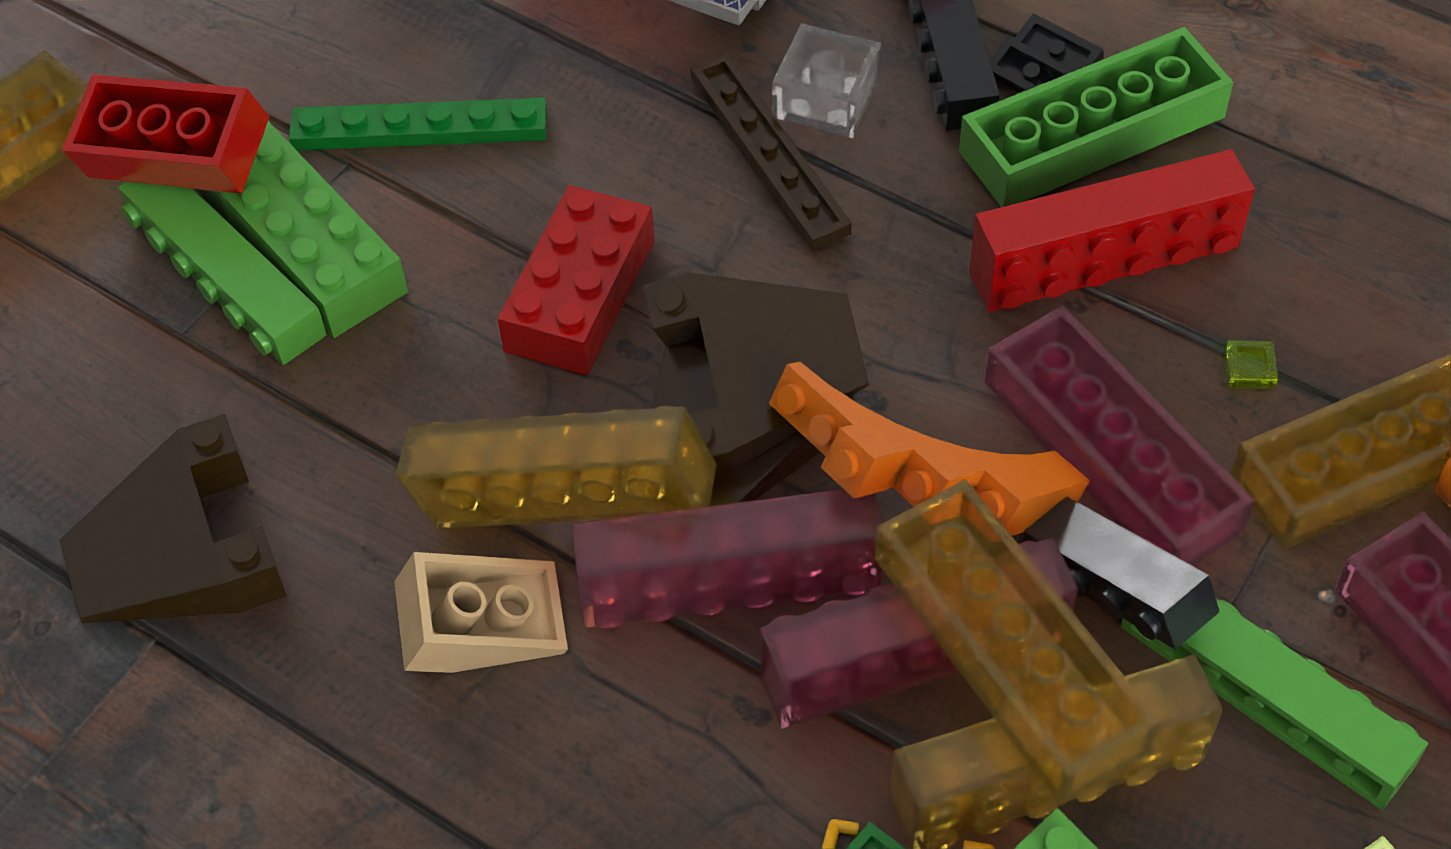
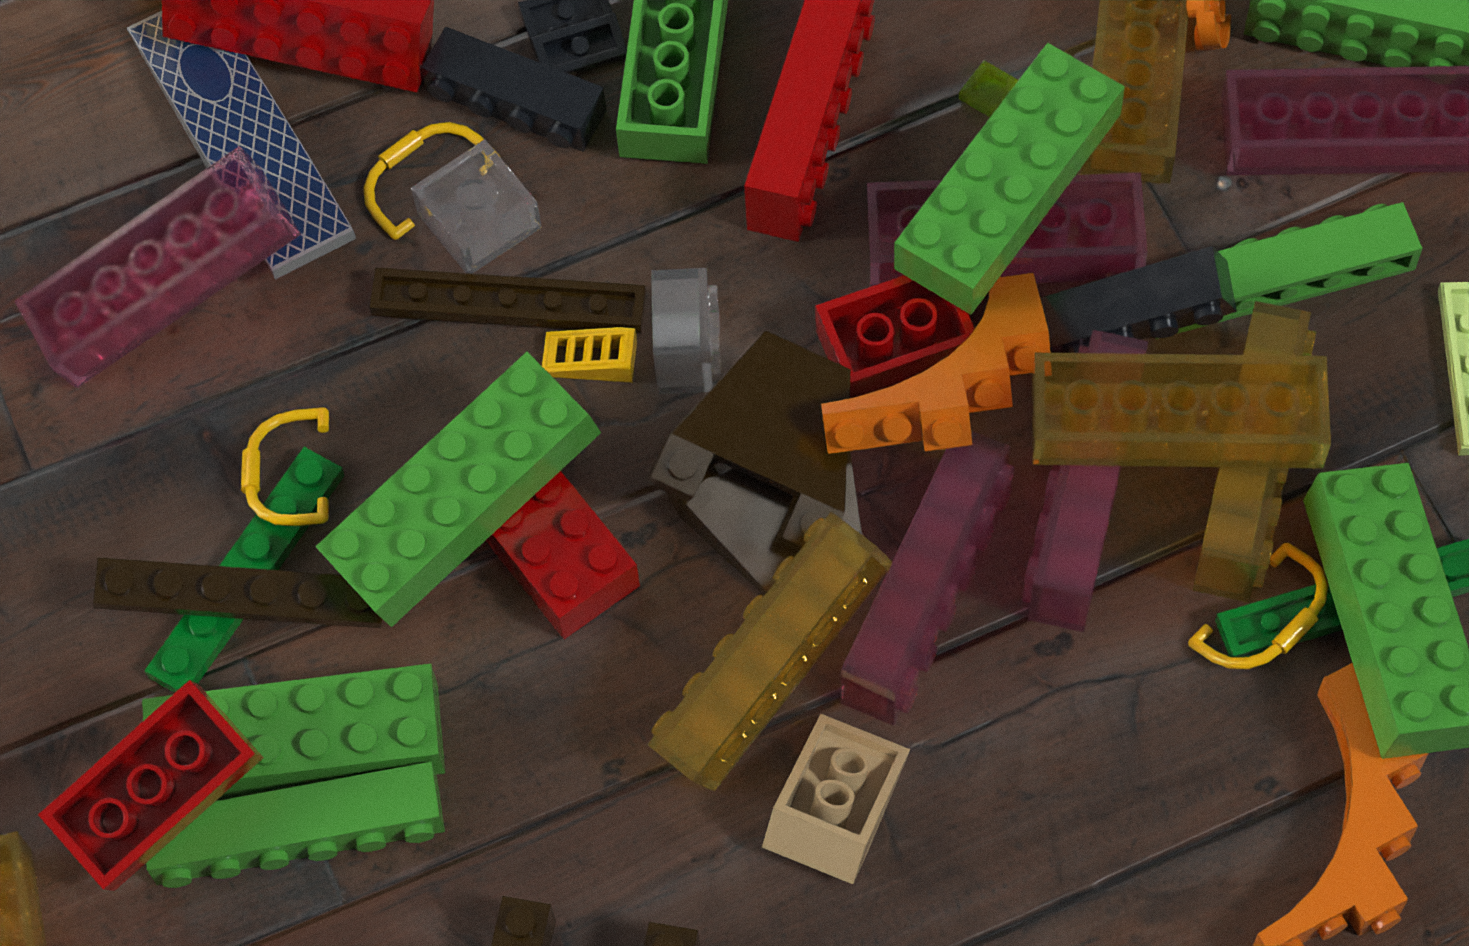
camera: 55 degrees left, 10 degrees up
(389, 122) = (230, 593): none -> dark brown plate
(508, 75) = (251, 469): none -> yellow piece
(553, 181) = (459, 489): none -> bright green brick
(773, 252) = (603, 338): none -> yellow slope
(827, 251) = (685, 330): none -> clear brick
(843, 20) = (397, 153): none -> yellow piece
(949, 399) = (889, 332): none -> red brick
(1152, 393) = (1008, 178): none -> bright green brick

